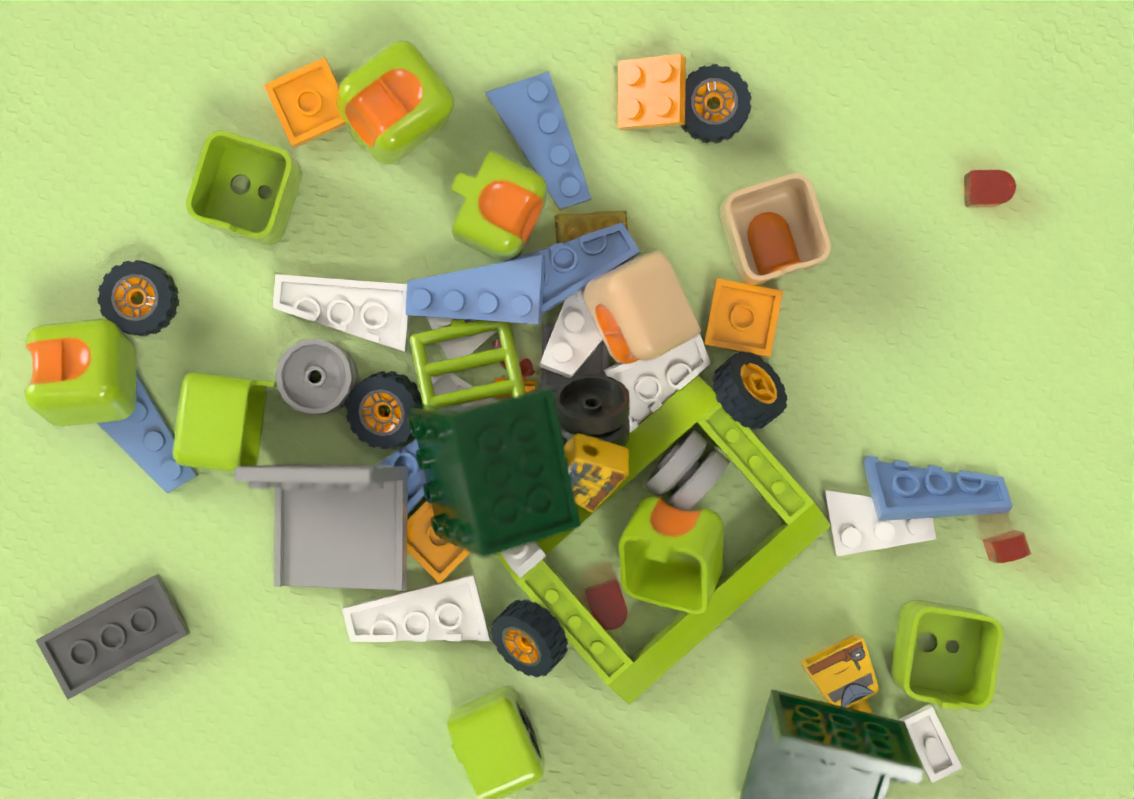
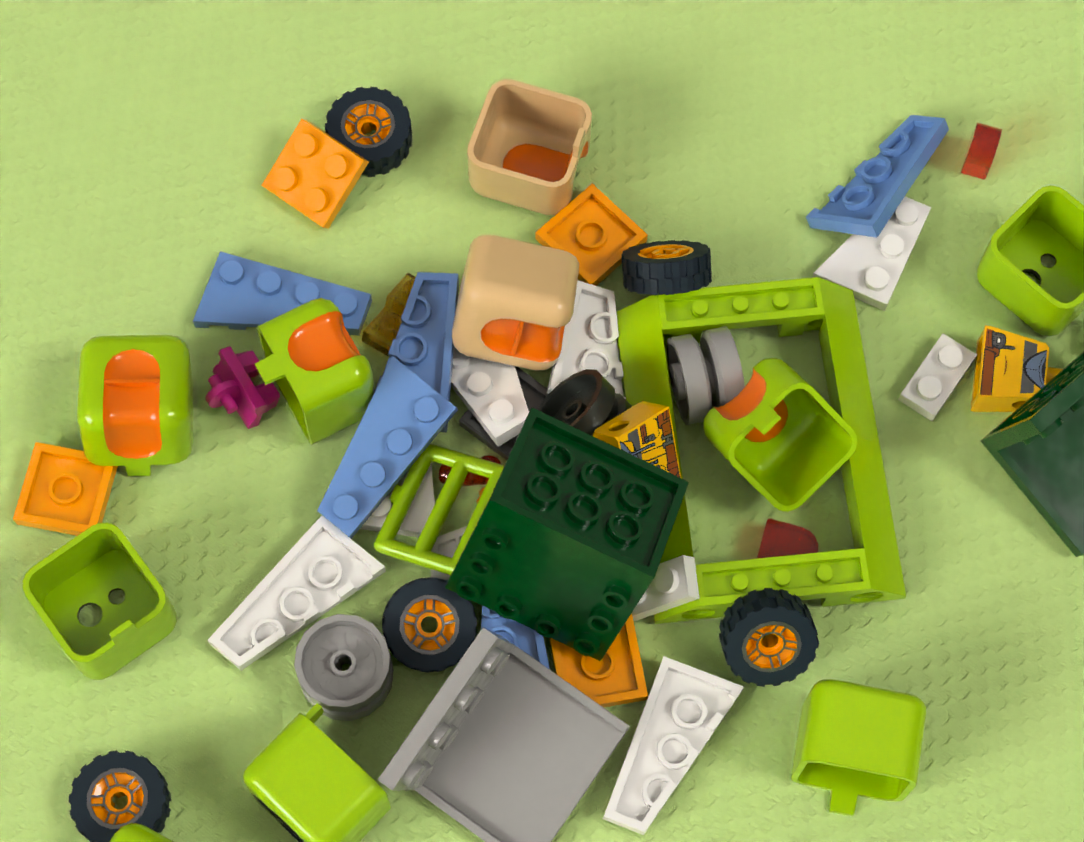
camera: 55 degrees left, 20 degrees down
(467, 149) = (235, 389): none -> dark pink hips
(807, 624) = (937, 377): none -> white plate

